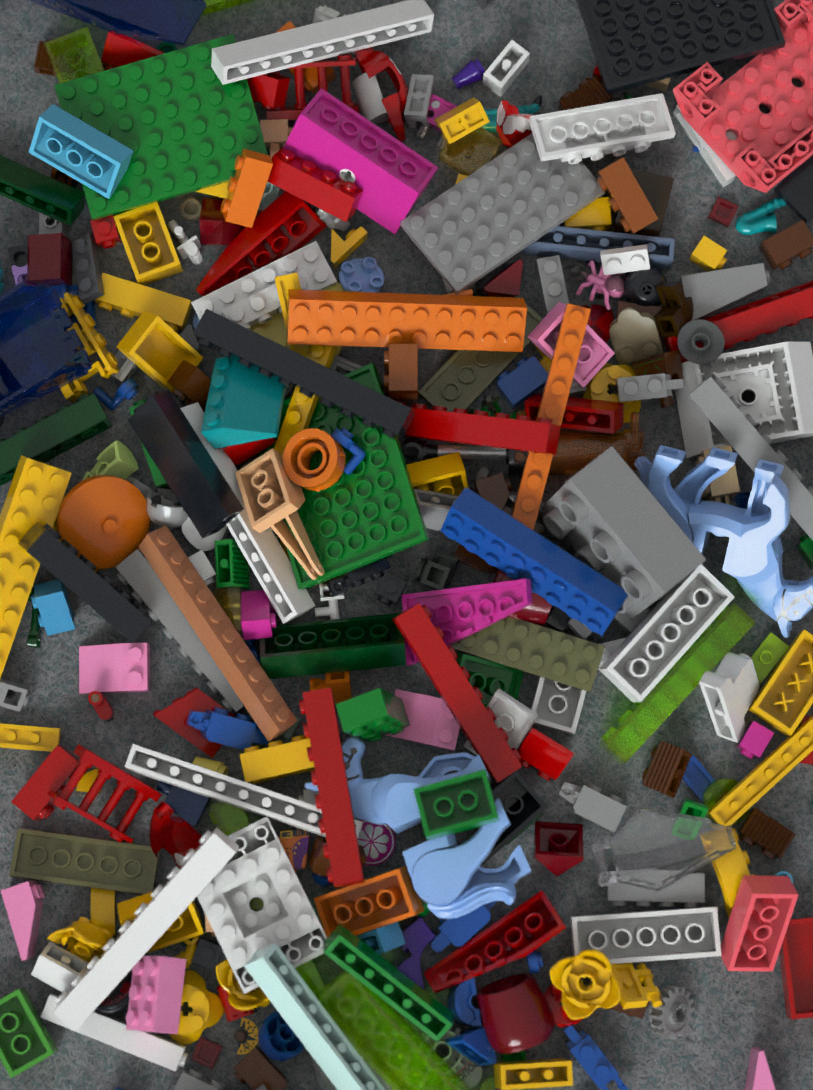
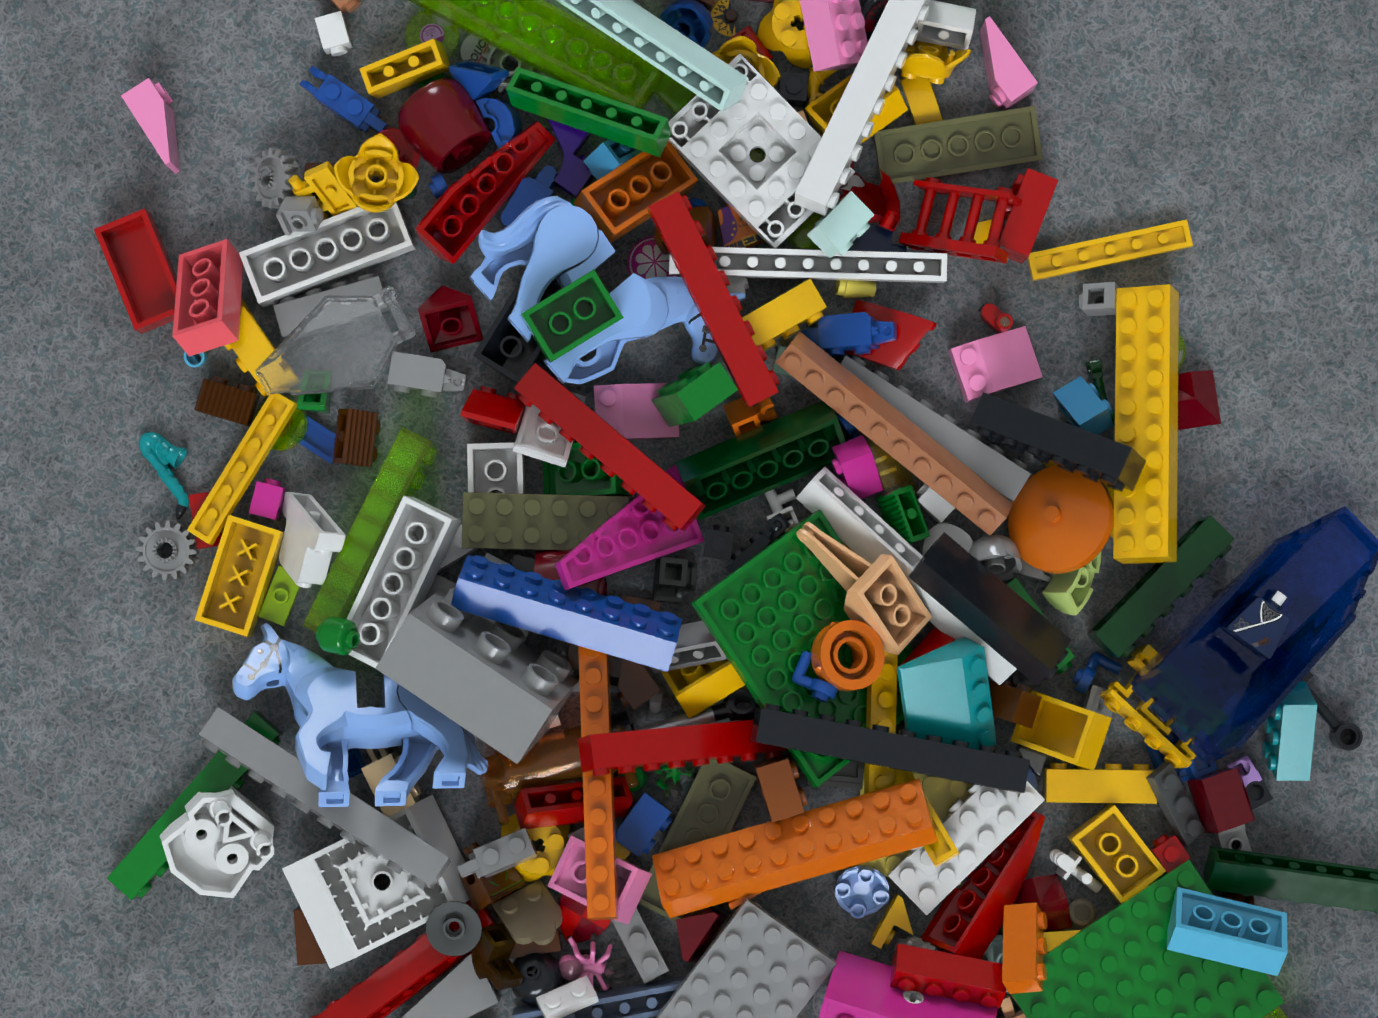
camera: 160 degrees right, 5 degrees up
(205, 815) = (841, 225): none -> light aqua brick
(660, 971) = (299, 214): none -> light grey brick
(728, 602) = (337, 635): none -> green head

